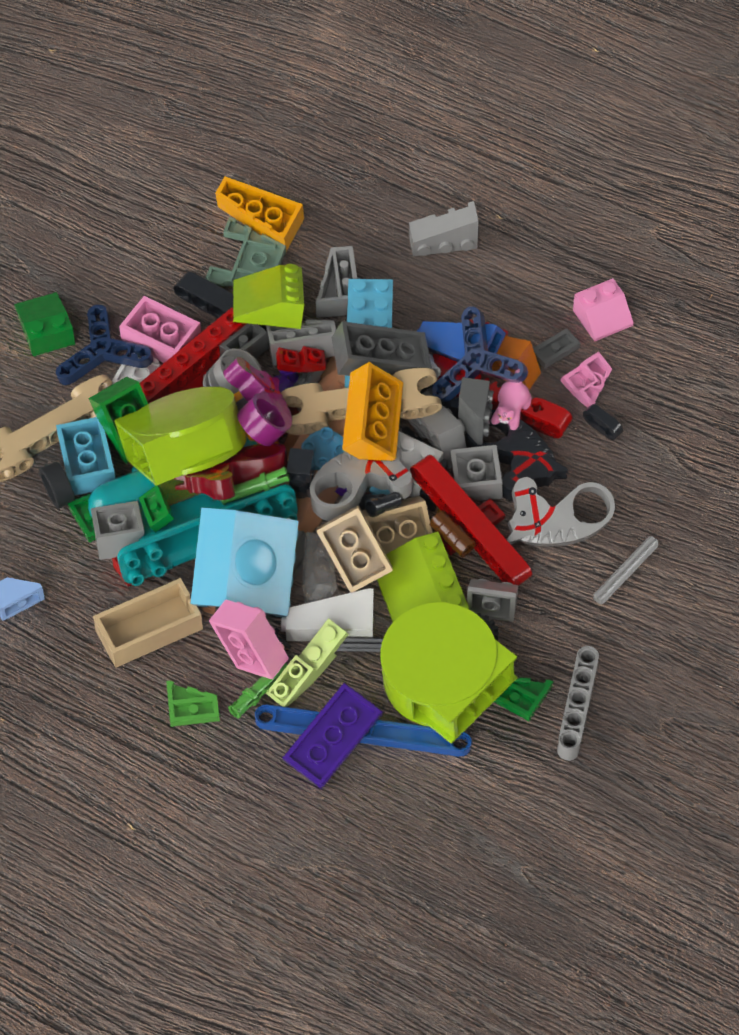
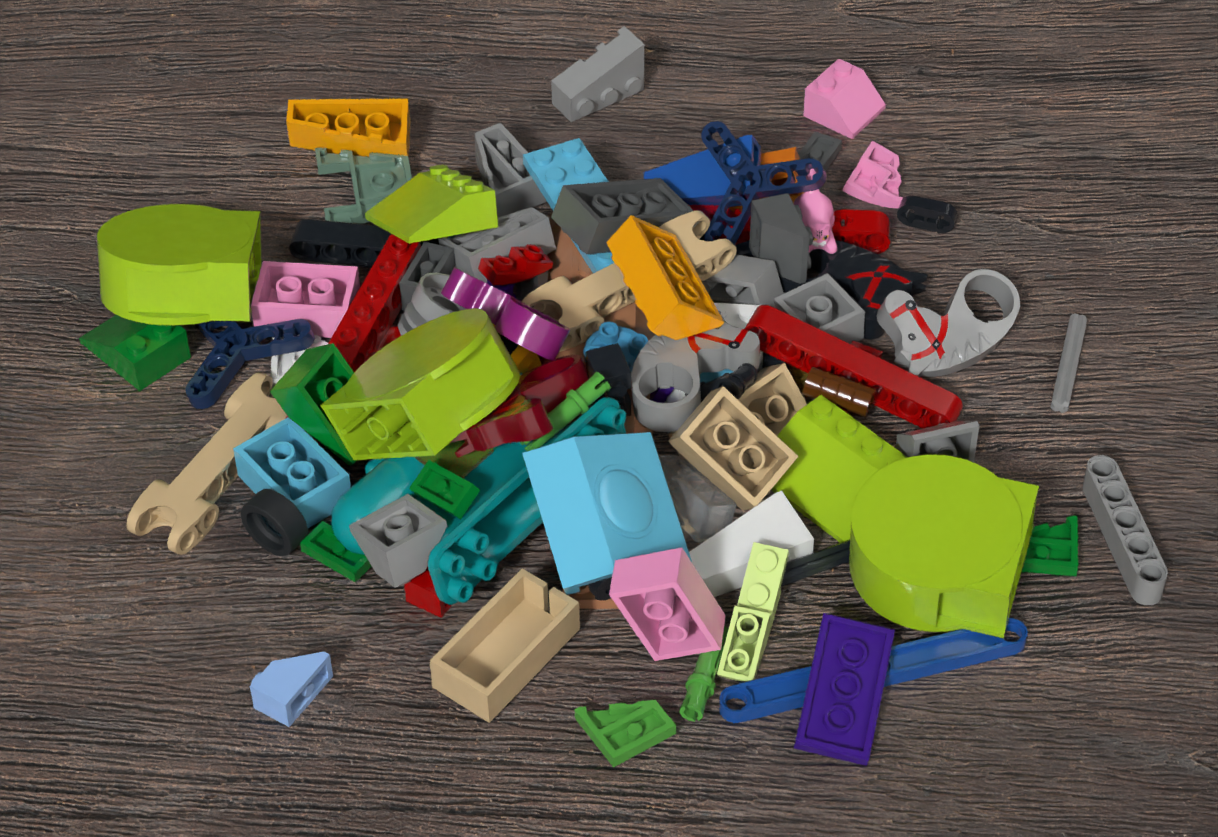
camera: 25 degrees left, 10 degrees down
(91, 279) = (180, 264): none -> lime brick

